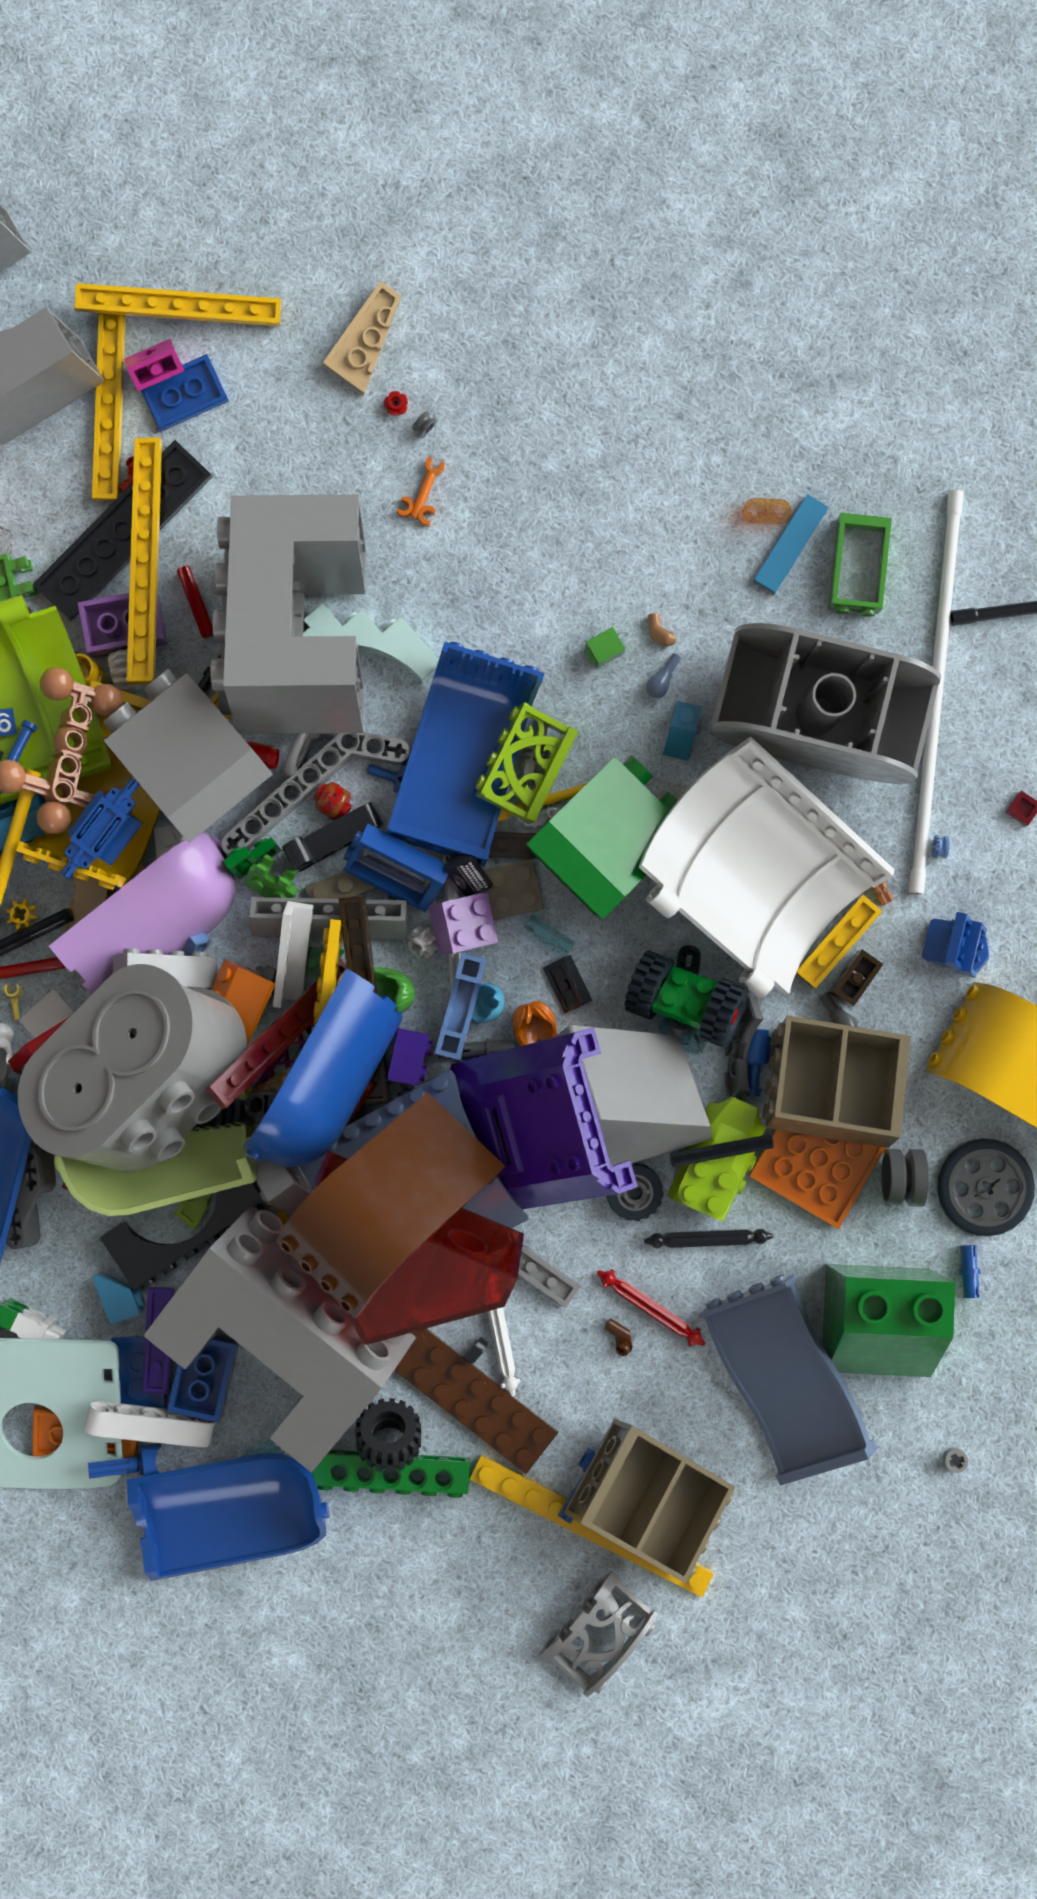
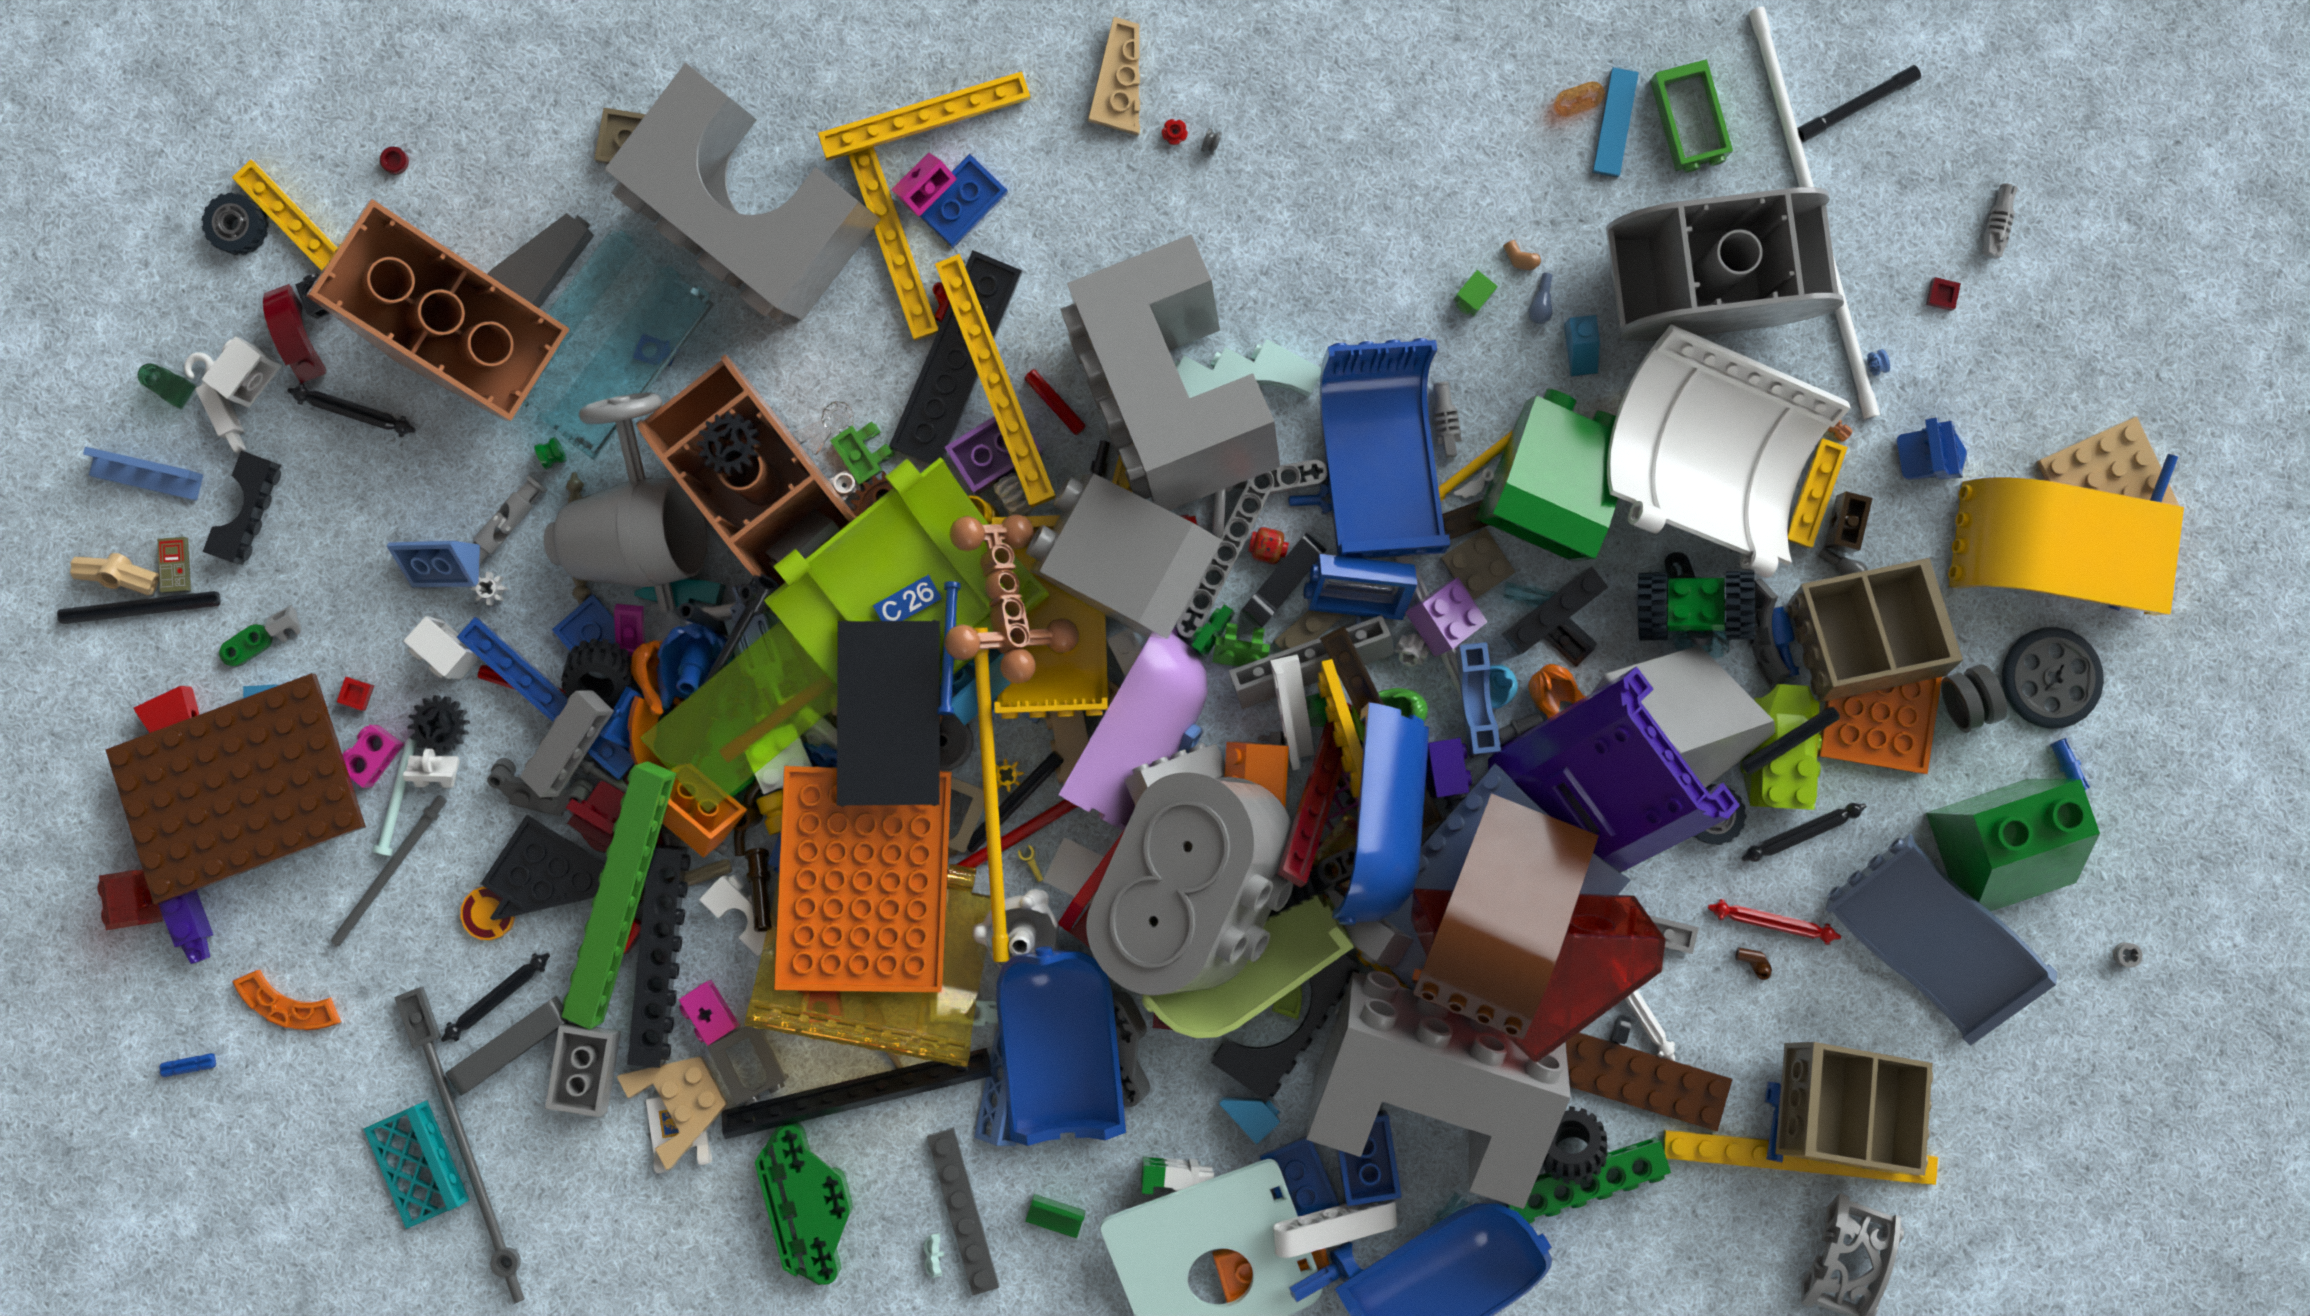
camera: 20 degrees left, 0 degrees up
(103, 829) = (1071, 657): blue piece -> none
(156, 1363) = (1312, 1155): dark purple tile -> none
(418, 509) = (1235, 228): orange bar -> none
(467, 874) = (1433, 566): slope -> none
(558, 752) = (1472, 411): lime fence -> none
(563, 955) = (1555, 610): none -> black arch

